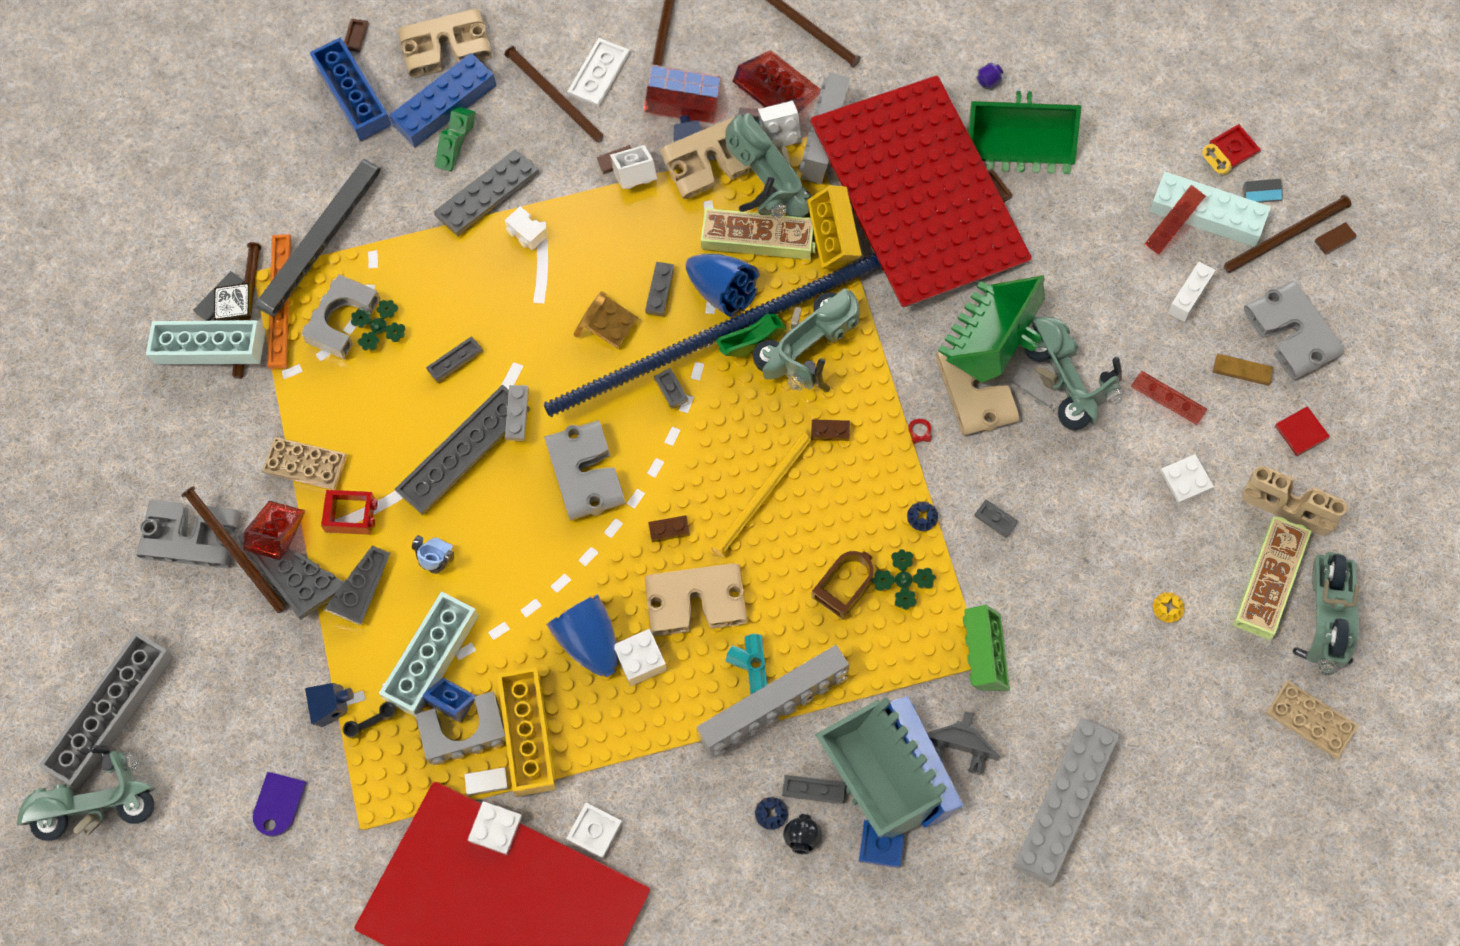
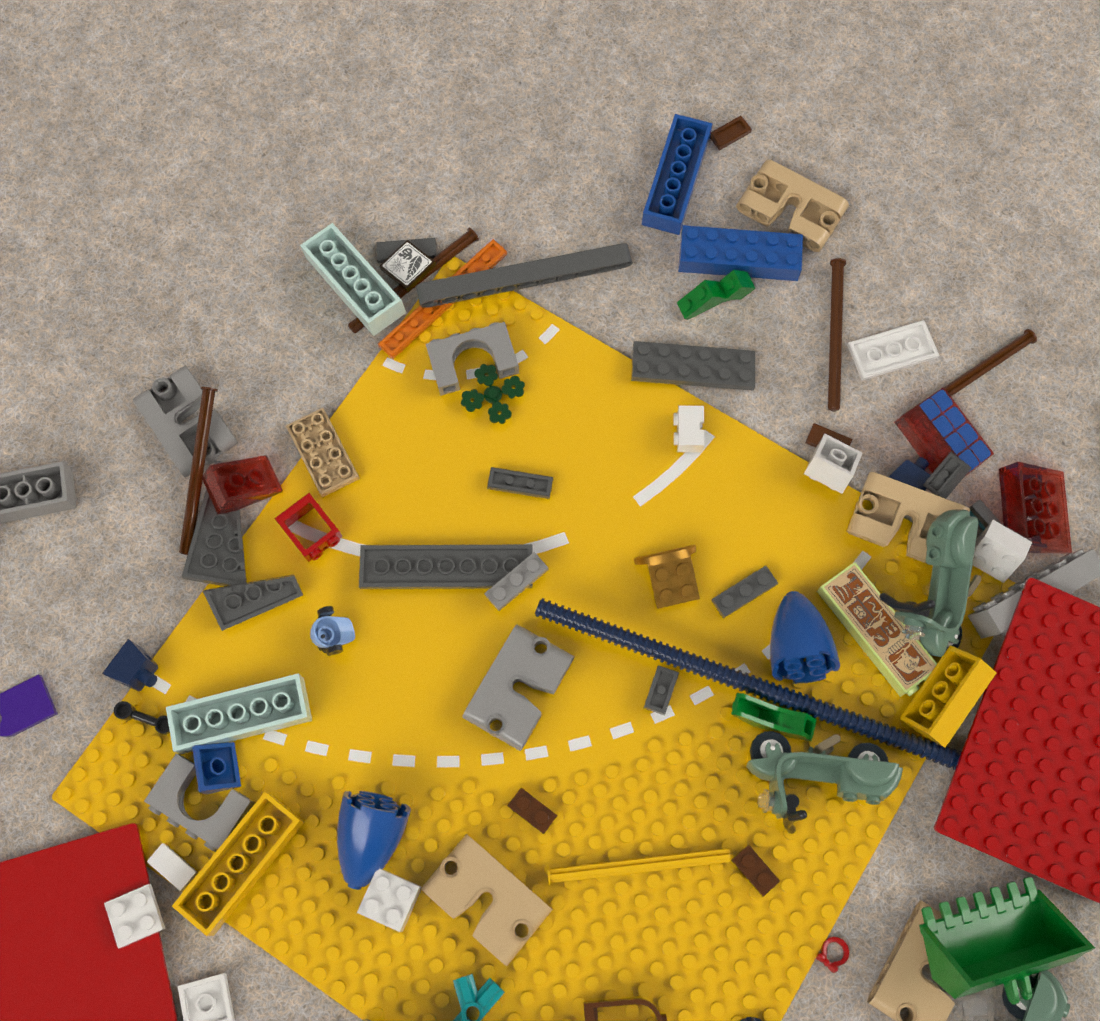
camera: 45 degrees right, 5 degrees up
(706, 109) = (947, 476): none -> dark grey slope

